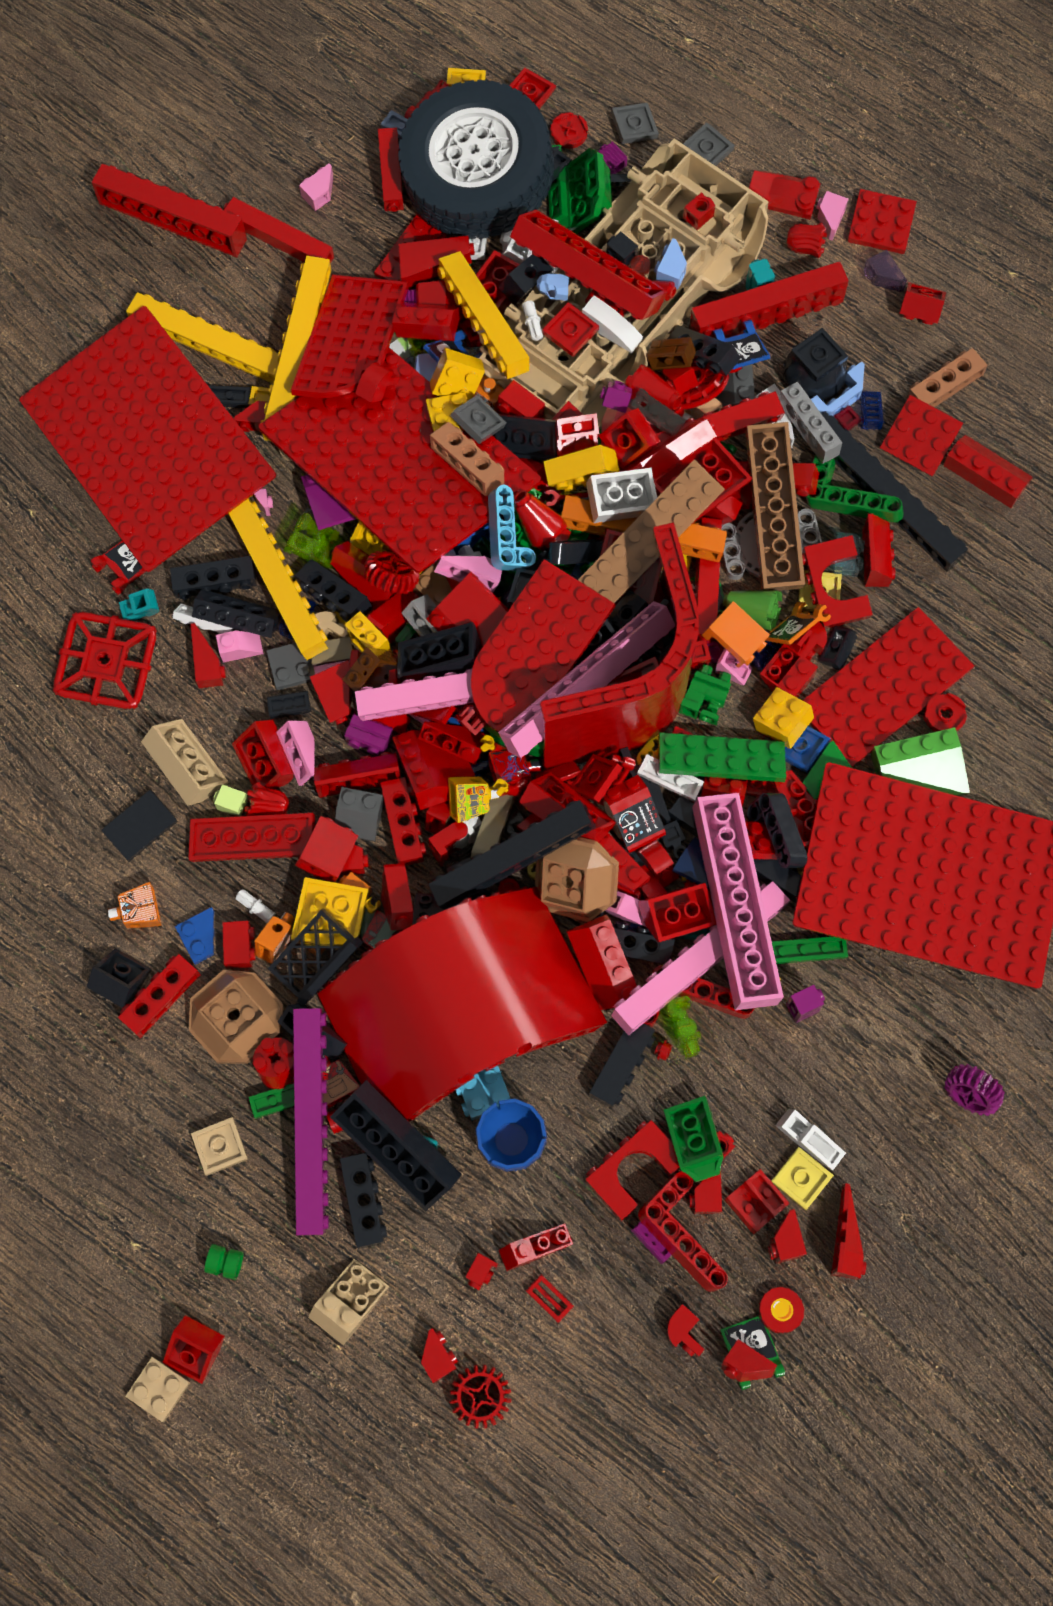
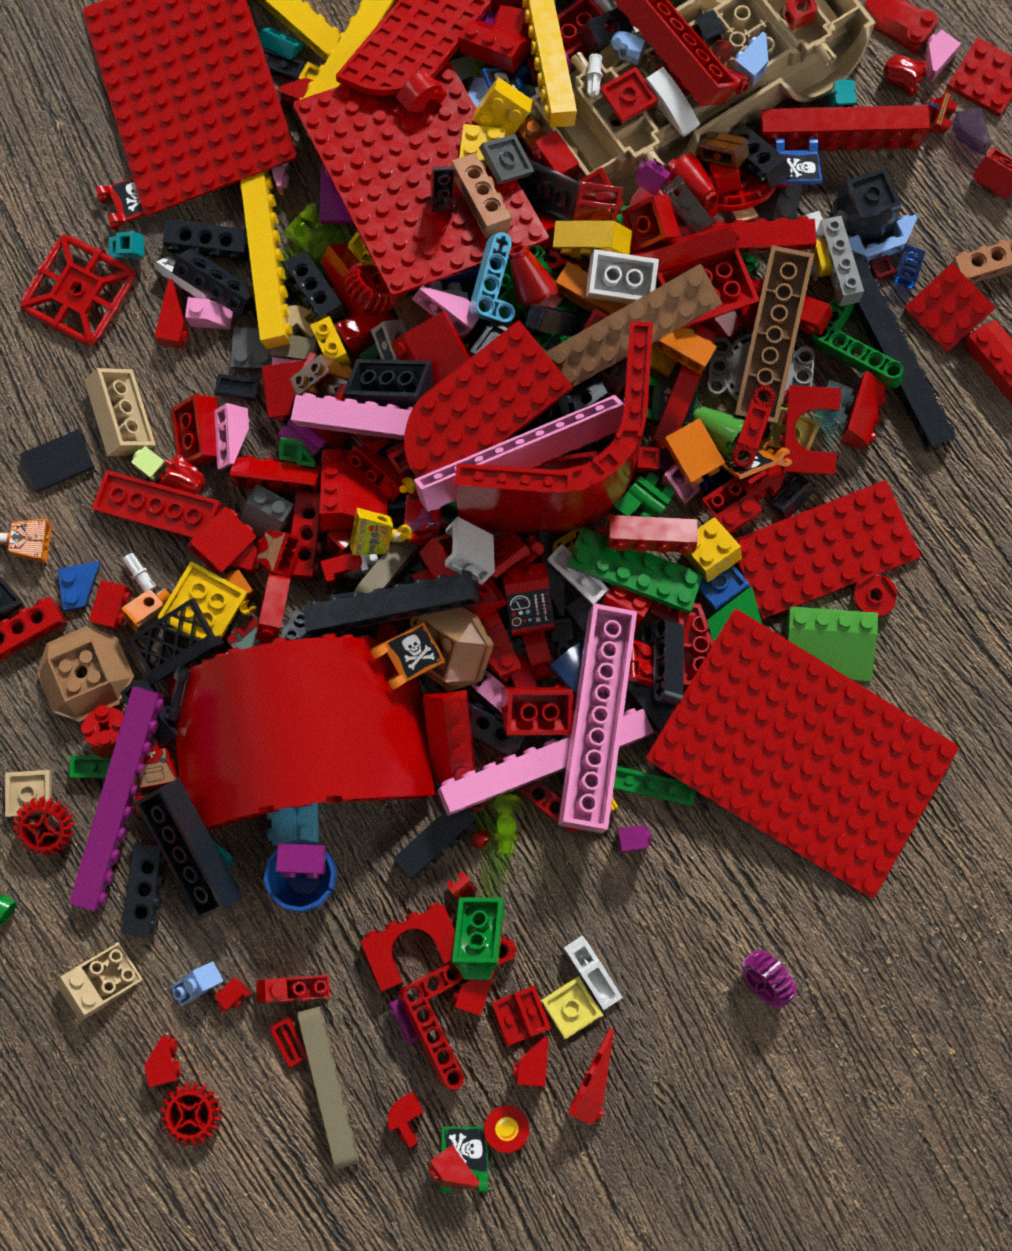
camera: 20 degrees right, 5 degrees up
(221, 376) = (280, 43): none -> teal slope
(237, 1171) = (61, 828): none -> red gear
(334, 985) = (173, 711): none -> black bar
(367, 746) = (295, 451): none -> green slope
(383, 842) = (278, 551): none -> red torso
(431, 462) = (442, 188): none -> black slope
(443, 1272) = (196, 983): none -> light blue slope
(509, 1117) = (301, 859): none -> magenta brick
(545, 895) = (410, 653): none -> flag
(569, 781) = (471, 550): none -> white panel
(602, 1328) = (328, 1087): none -> dark tan beam
(663, 1099) = (463, 887): none -> red tile
(727, 718) = (652, 534): none -> brick
(785, 594) = (753, 426): none -> red plate
(796, 429) = (822, 258): none -> yellow beam
(849, 261) = (937, 109): none -> red hips

